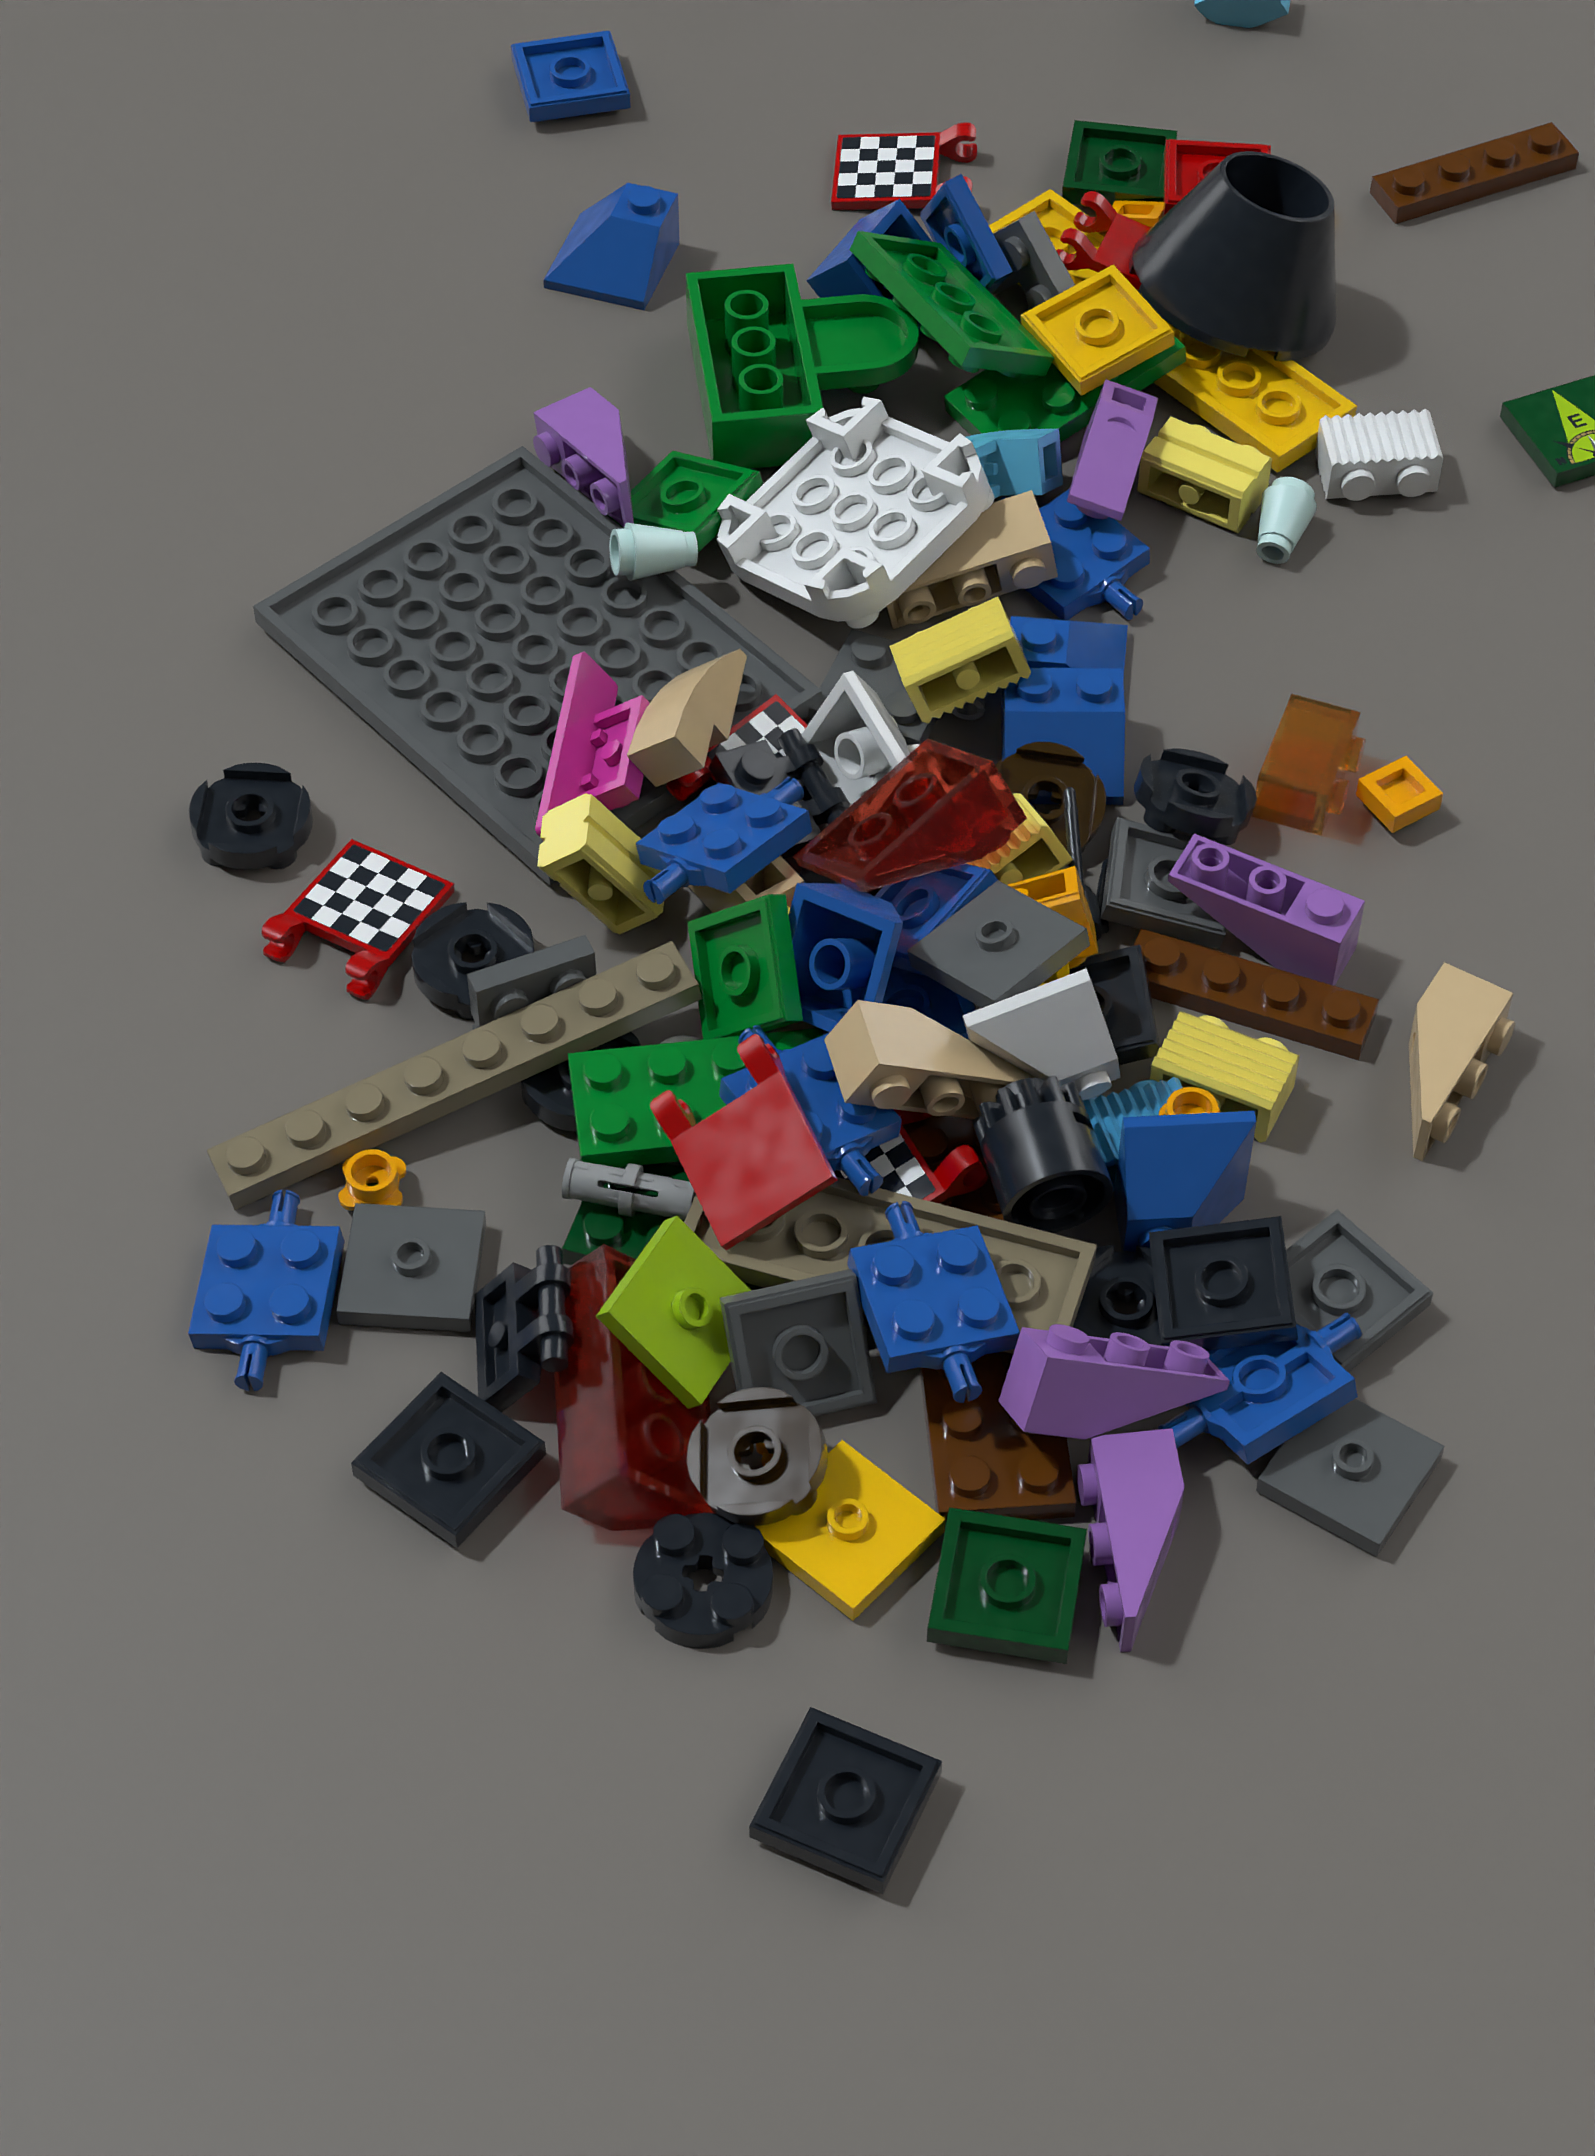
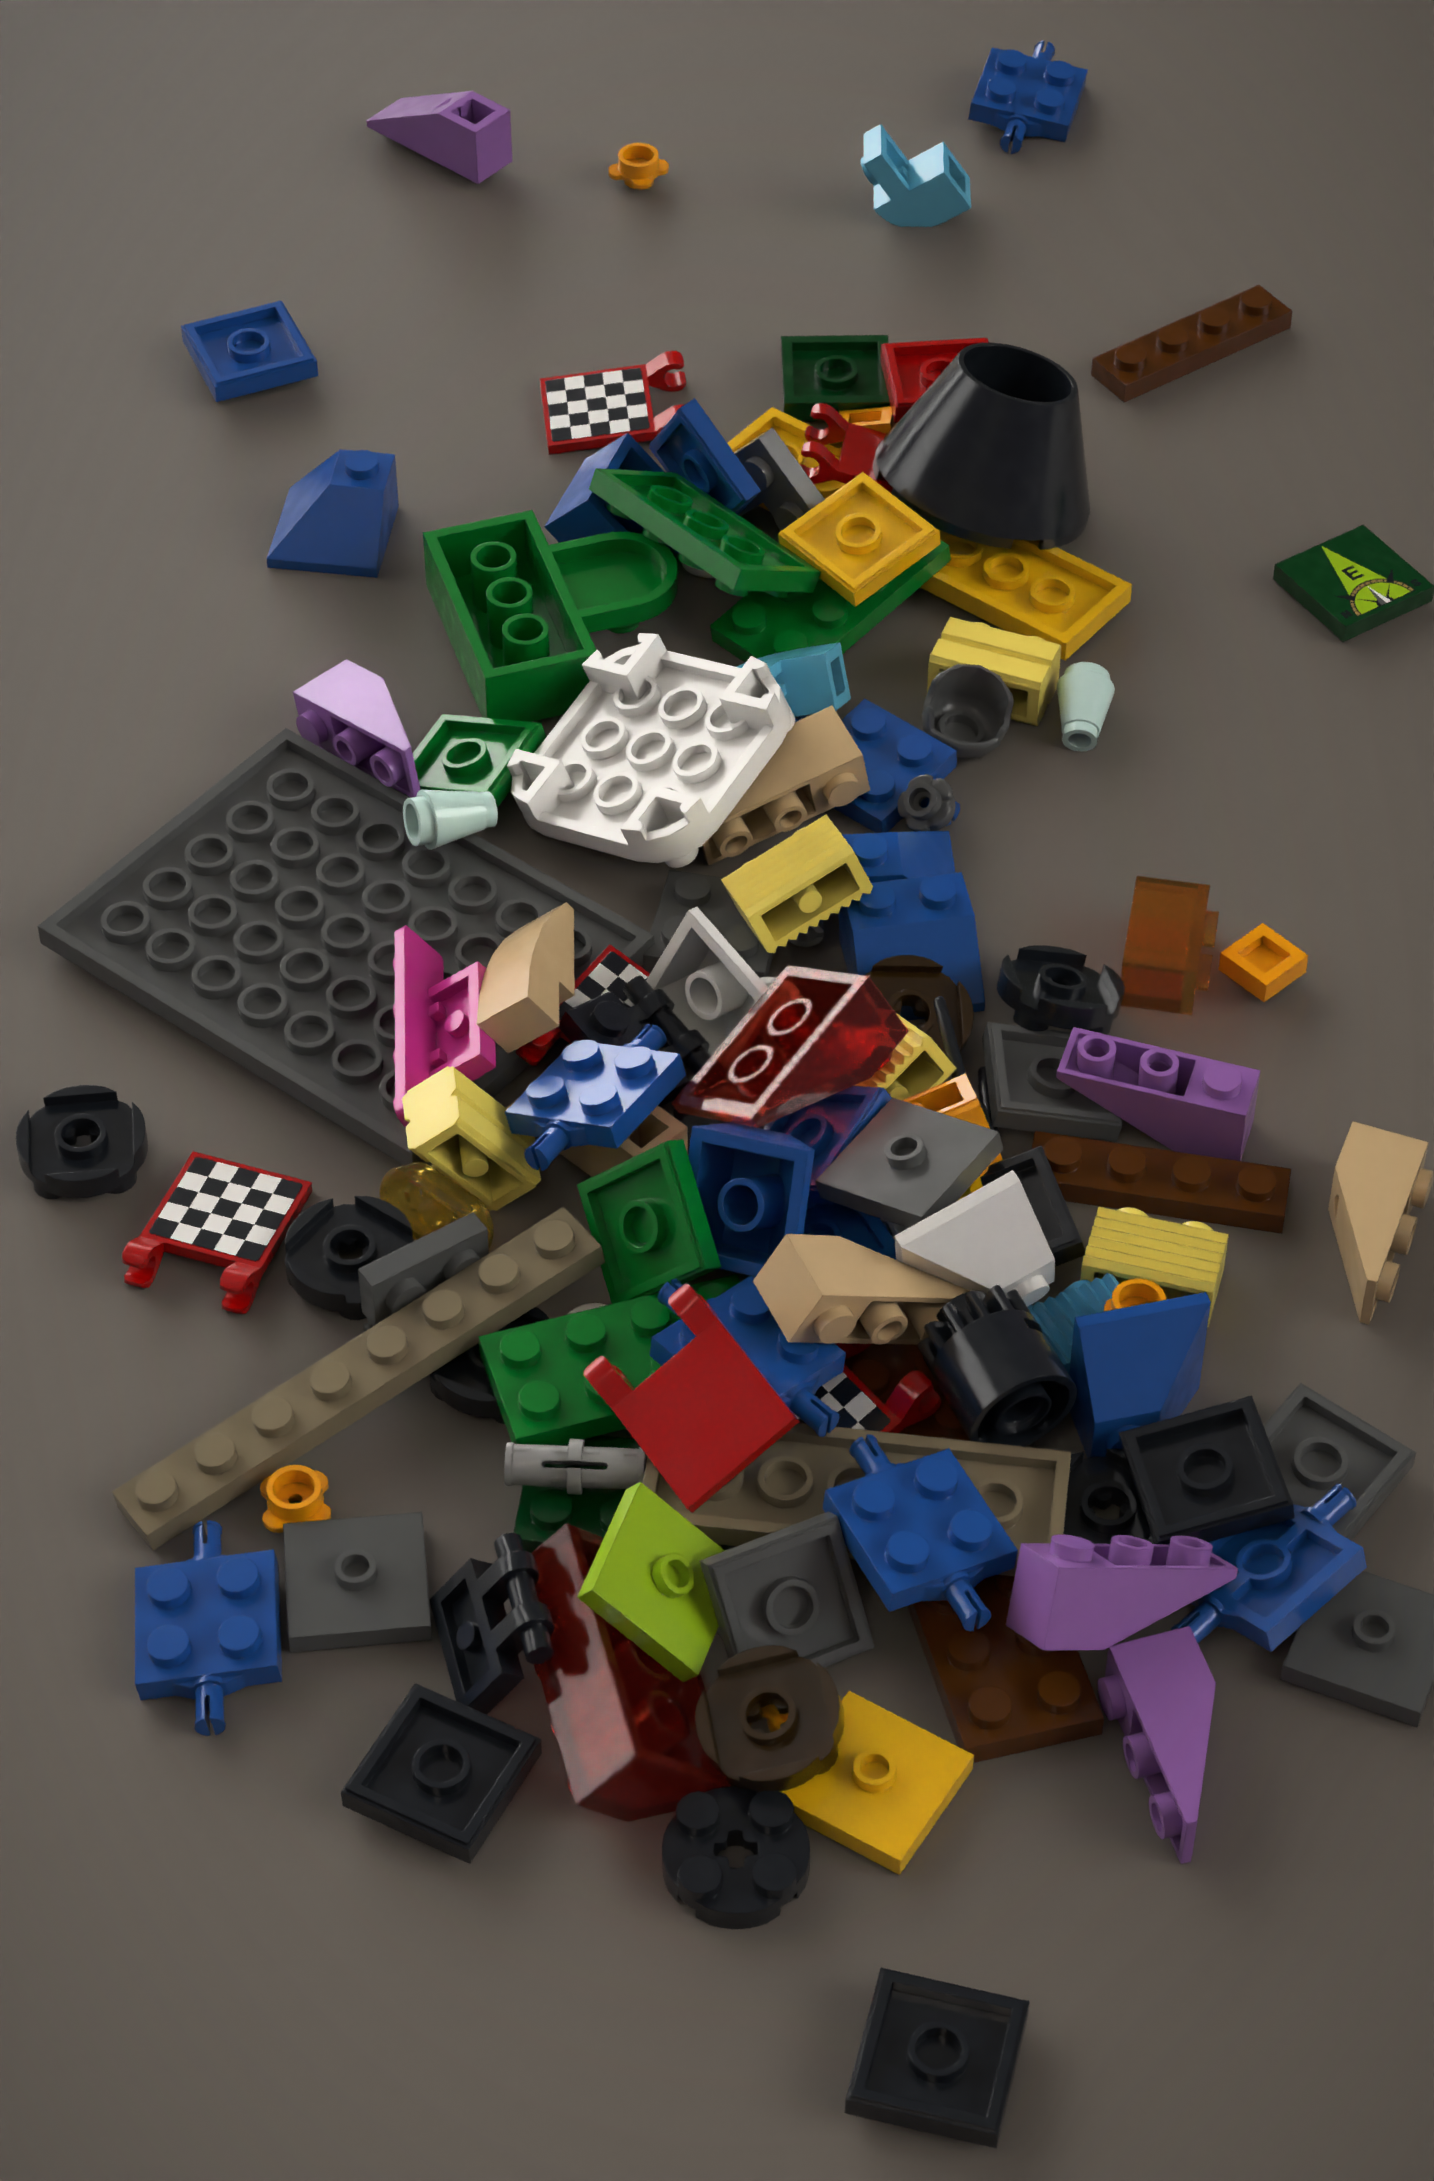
camera: 10 degrees left, 5 degrees down
(558, 917) = (441, 1201): none -> clear yellow plate
(1007, 1585) = (1053, 1813): dark green plate -> none
(1111, 451) = (898, 657): medium lavender slope -> none
(1119, 605) = (937, 813): none -> dark grey plate
(1169, 510) = (968, 709): none -> dark grey hair
(1378, 455) = (1164, 630): white brick -> none

